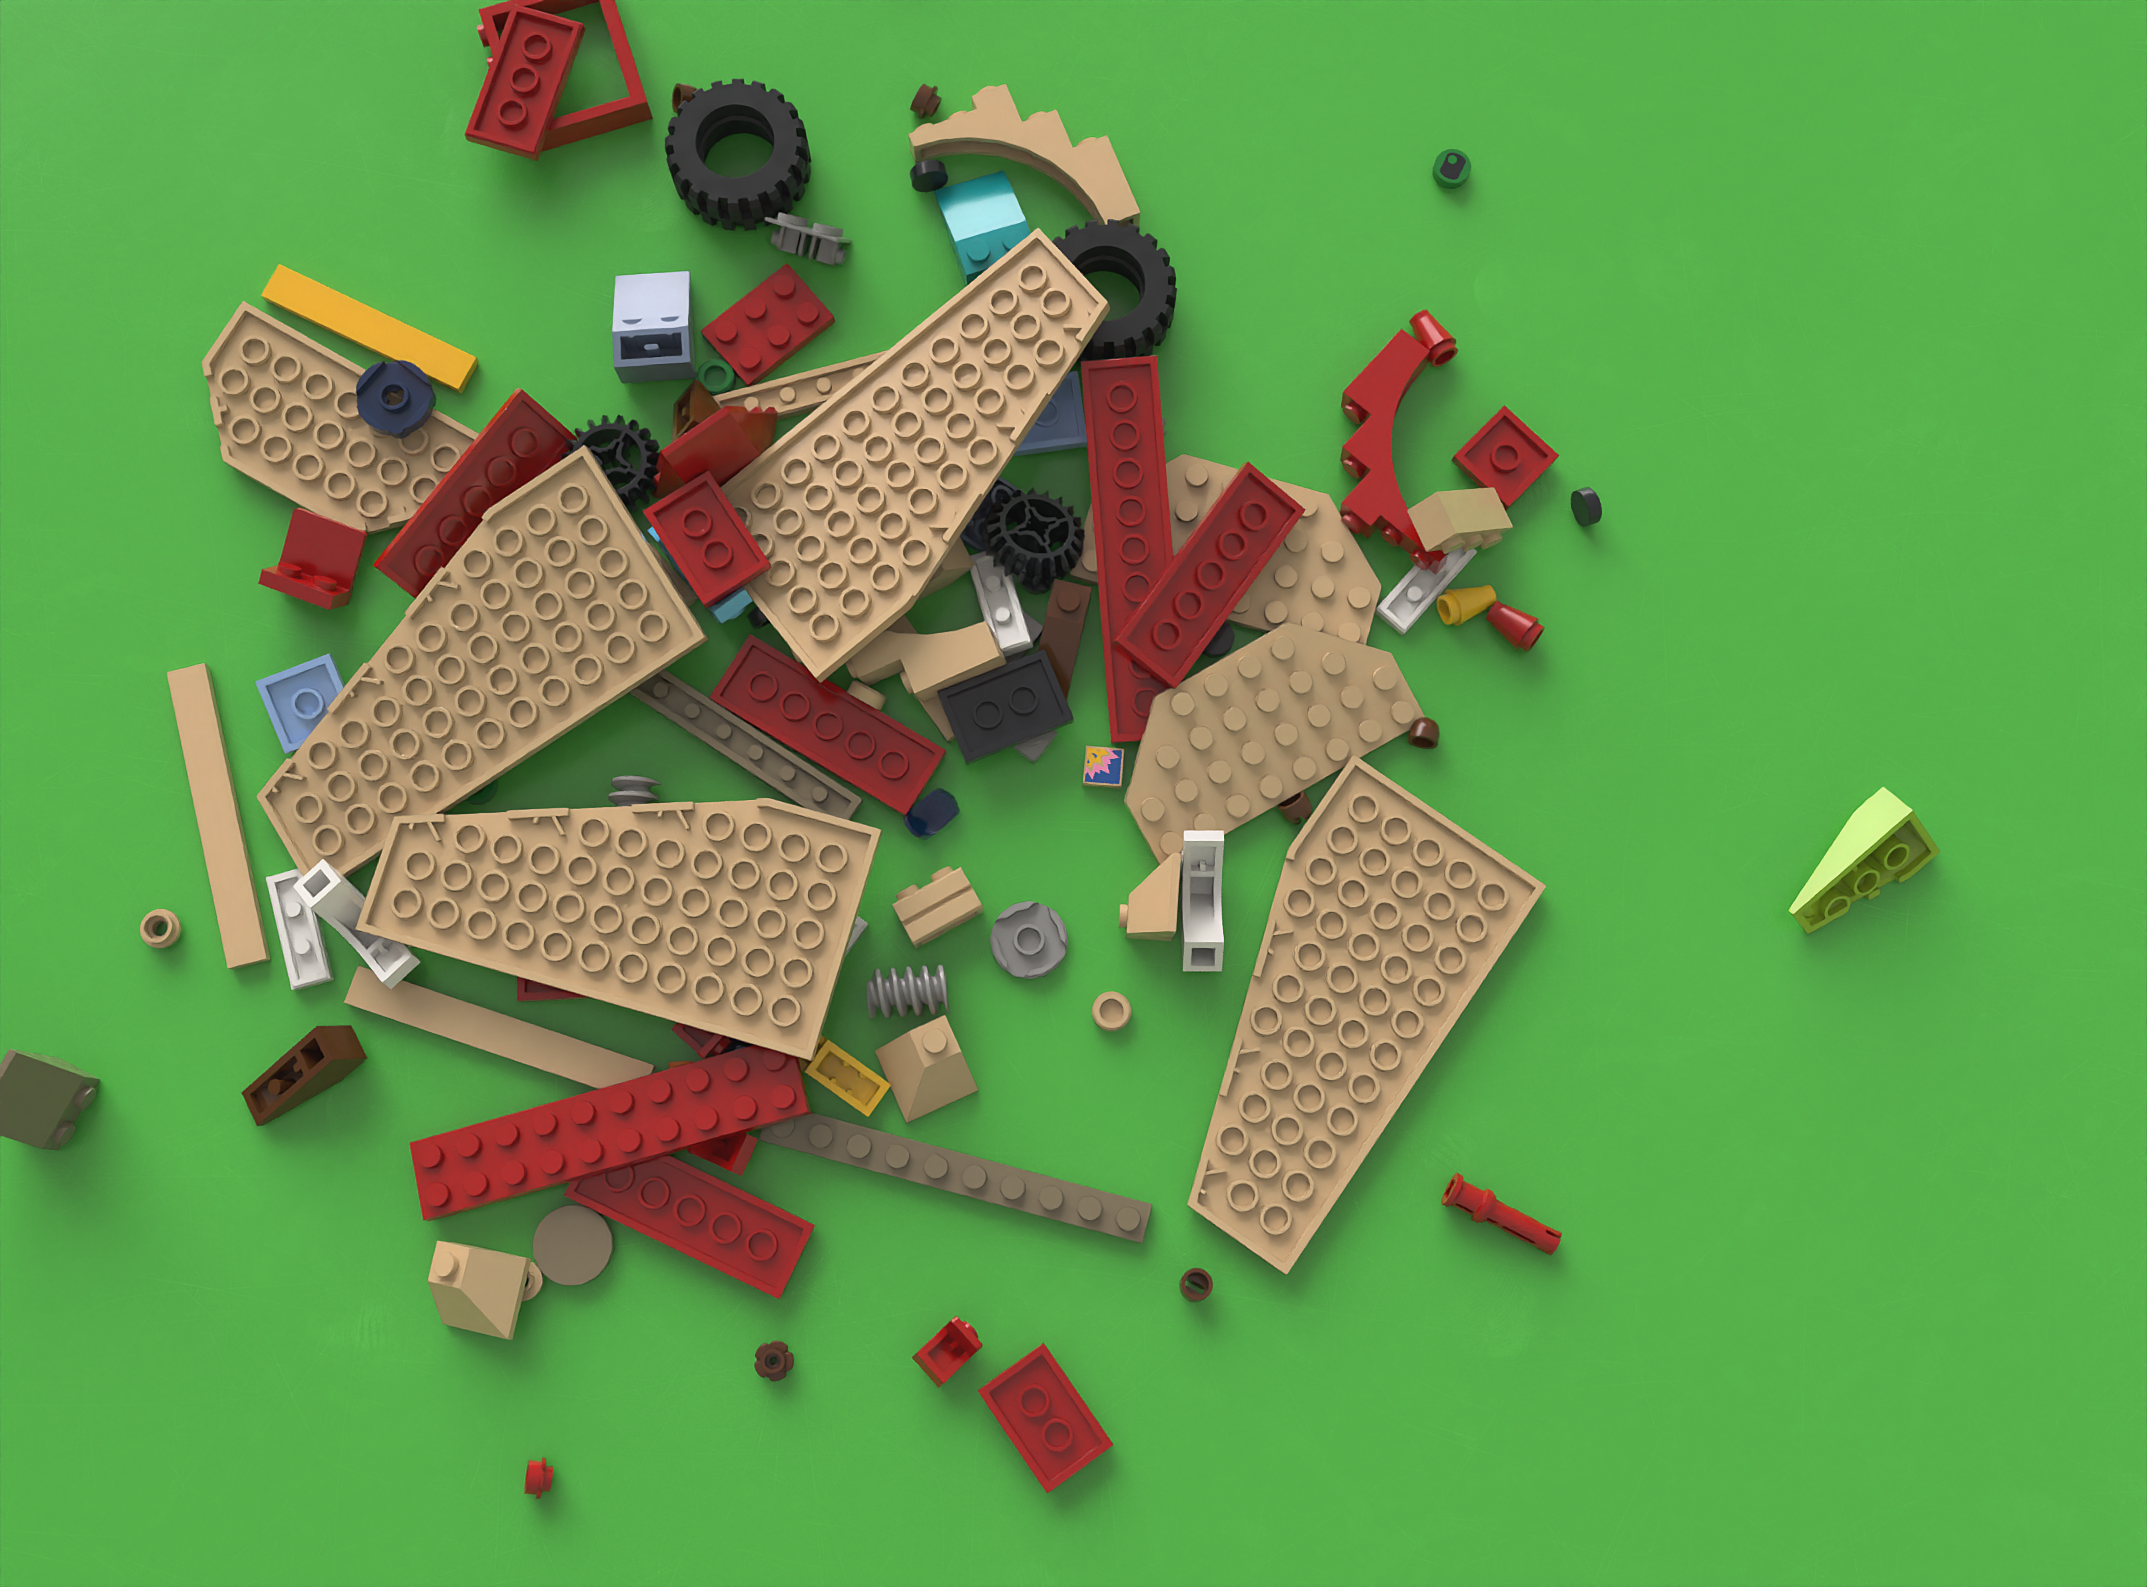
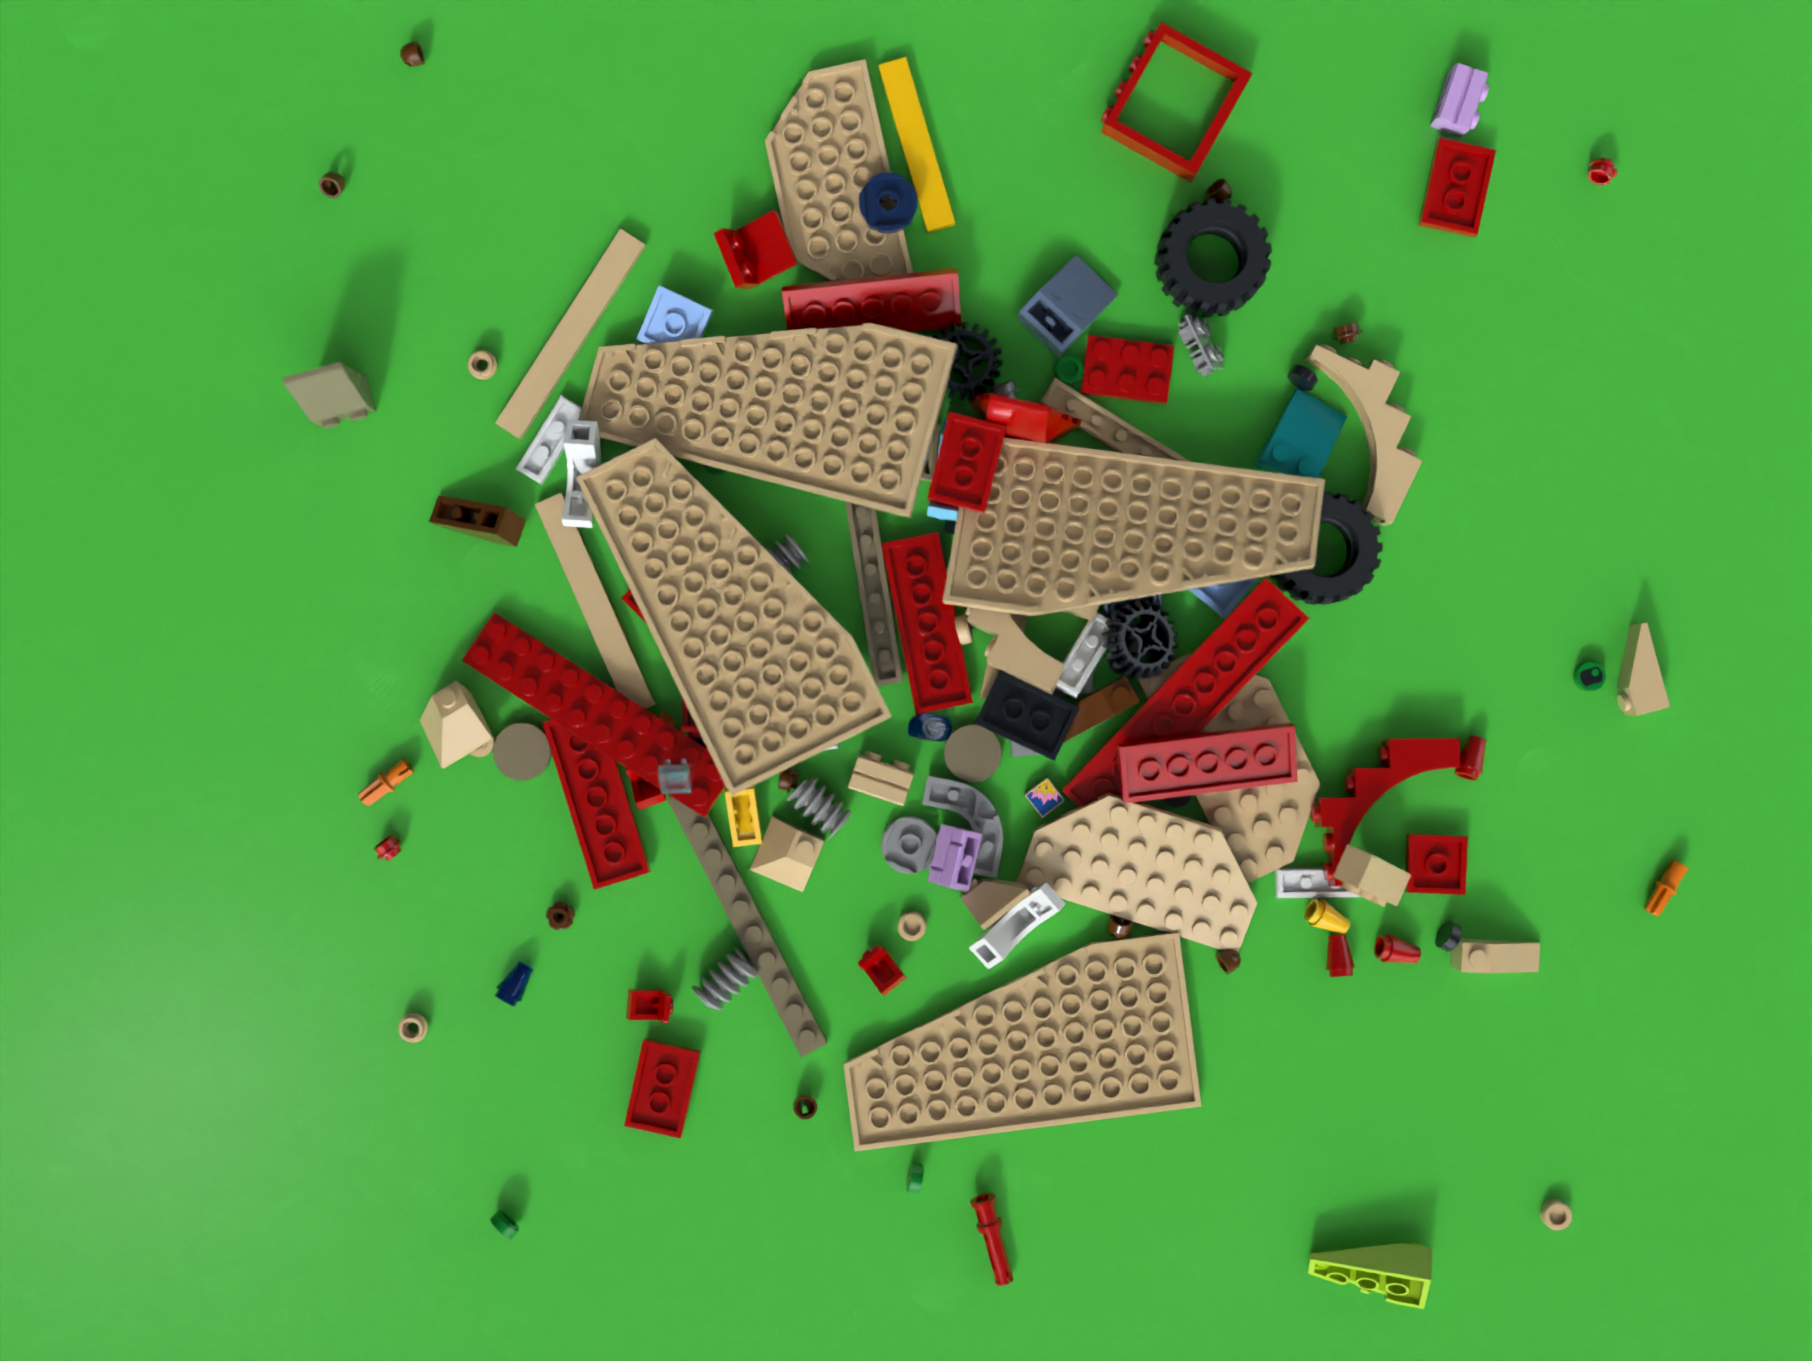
camera: 50 degrees right, 10 degrees up
(470, 1417) = (385, 782): none -> orange axle
(525, 82) = (1142, 93): red tile -> none
(692, 409) = (1034, 382): reddish brown slope -> none
(741, 1100) = (675, 777): none -> clear light blue tile
(798, 1474) = (513, 986): none -> clear blue cone
(851, 999) = (788, 779): none -> reddish brown plate
(993, 1248) = (726, 980): none -> light grey piece
(995, 797) = (972, 753): none -> dark tan tile
(1059, 843) = (977, 811): none -> light grey plate
(1080, 902) = (954, 857): none -> lavender brick
(1126, 1078) = (881, 969): none -> red bracket
(1367, 1238) = (914, 1177): none -> green tile
(1494, 124) = (1640, 678): none -> tan slope
(1555, 567) = (1395, 950): none -> red cone
(1644, 481) = (1495, 956): none -> tan slope
(1716, 272) = (1665, 887): none -> orange axle
(1952, 646) = (1555, 1214): none -> tan tile

